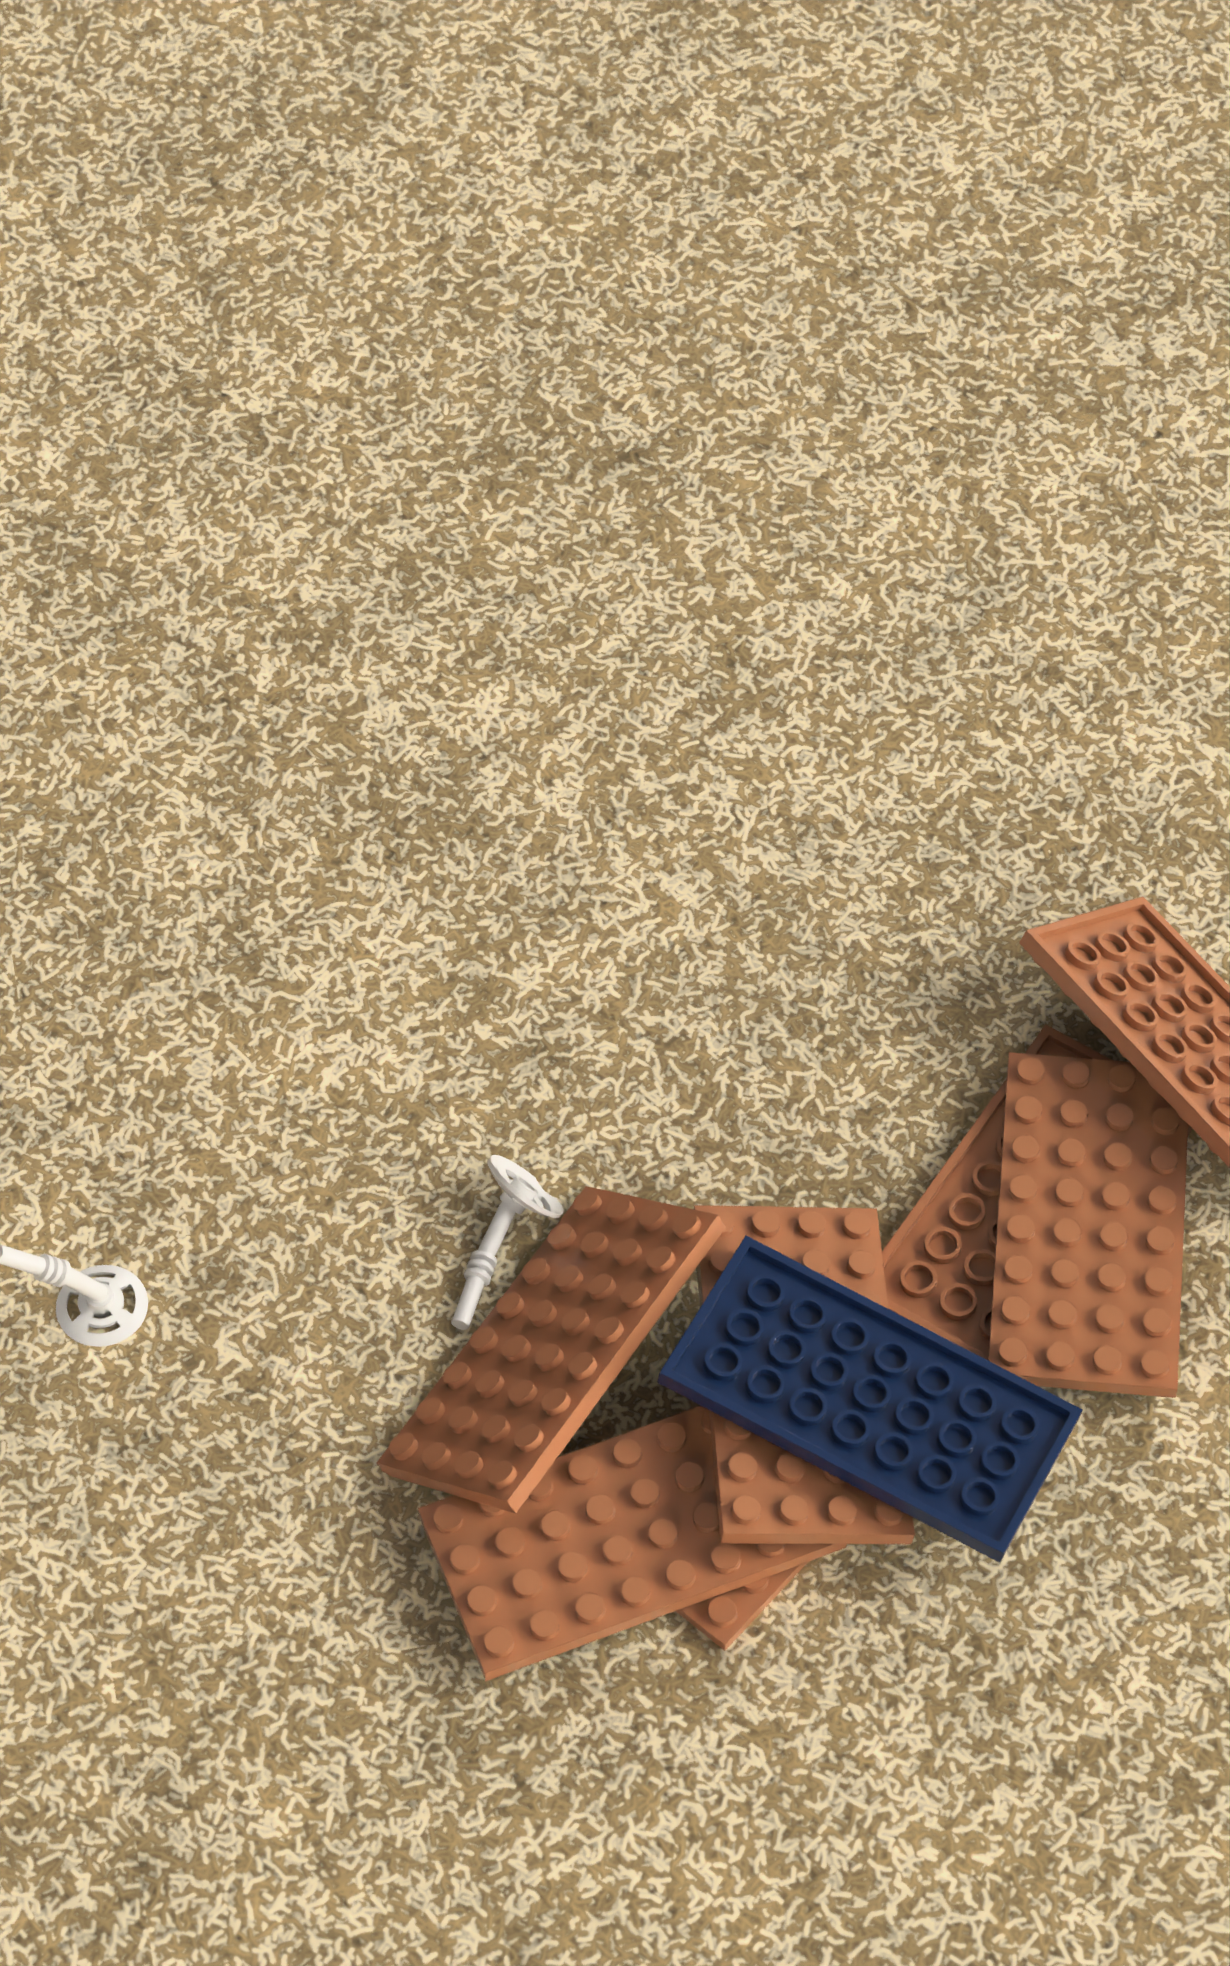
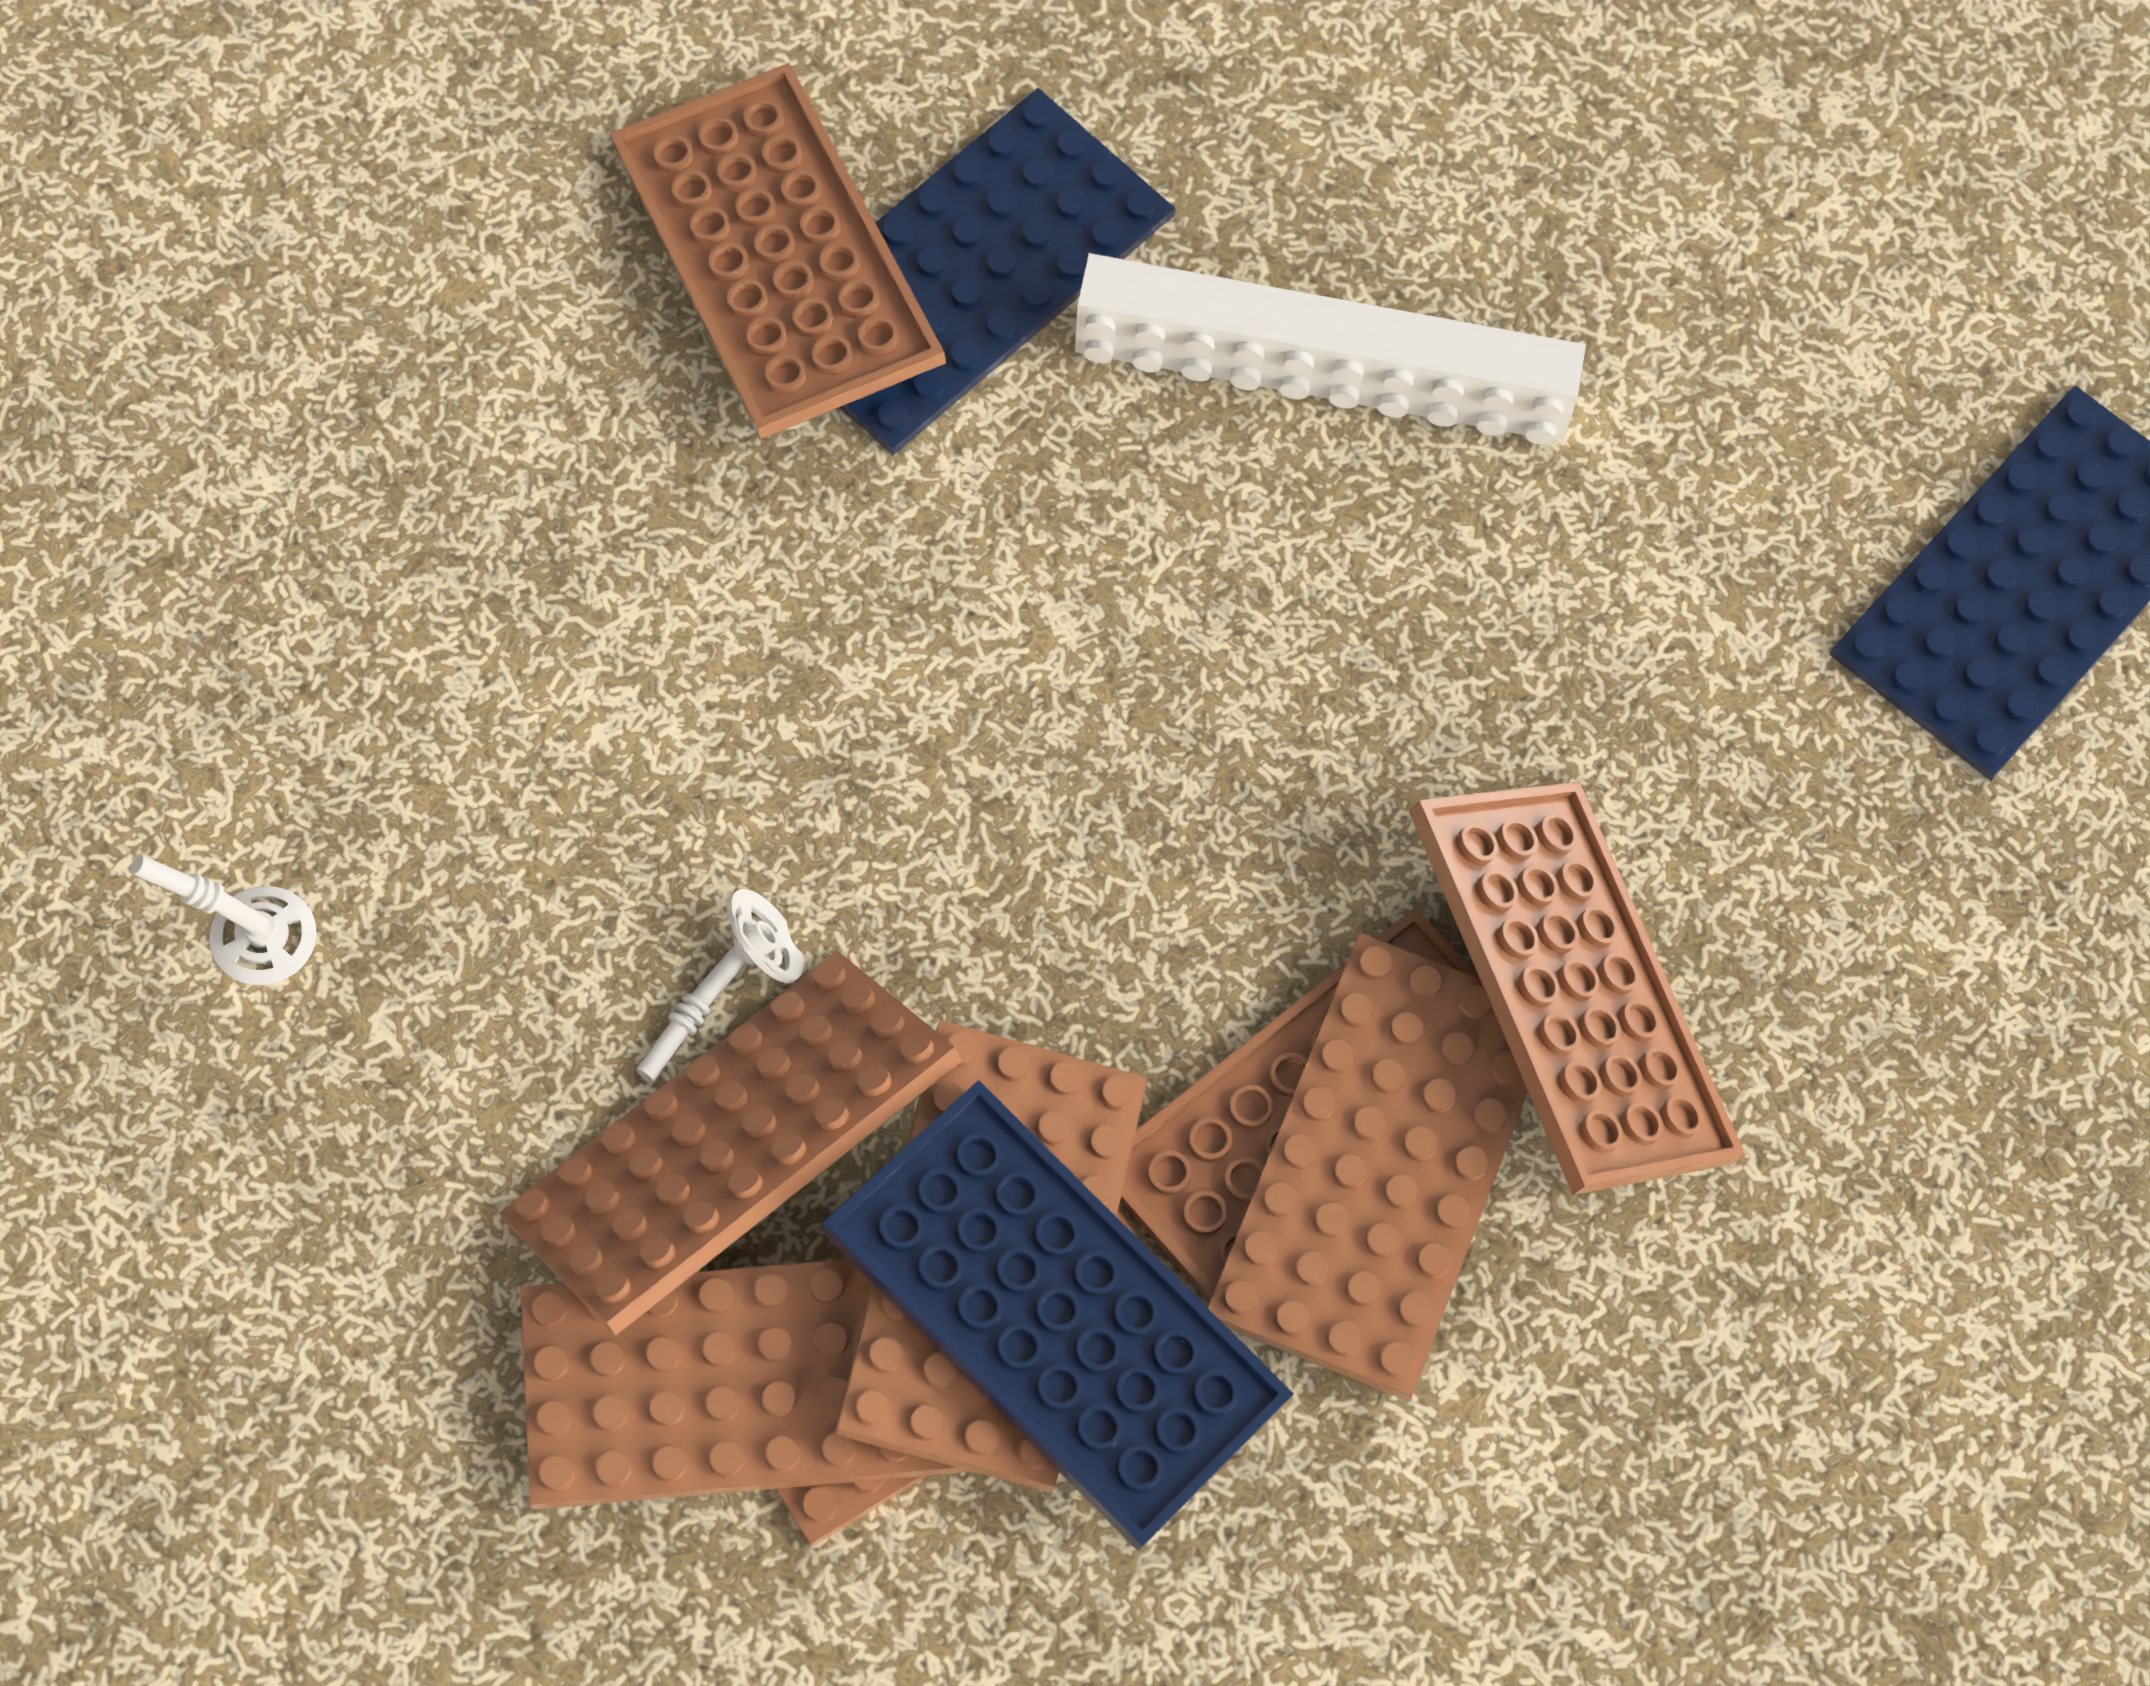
camera: 10 degrees right, 10 degrees up
(350, 665) = (777, 250): none -> nougat plate
(507, 645) = (1003, 250): none -> dark blue plate
(827, 622) = (1328, 349): none -> white brick

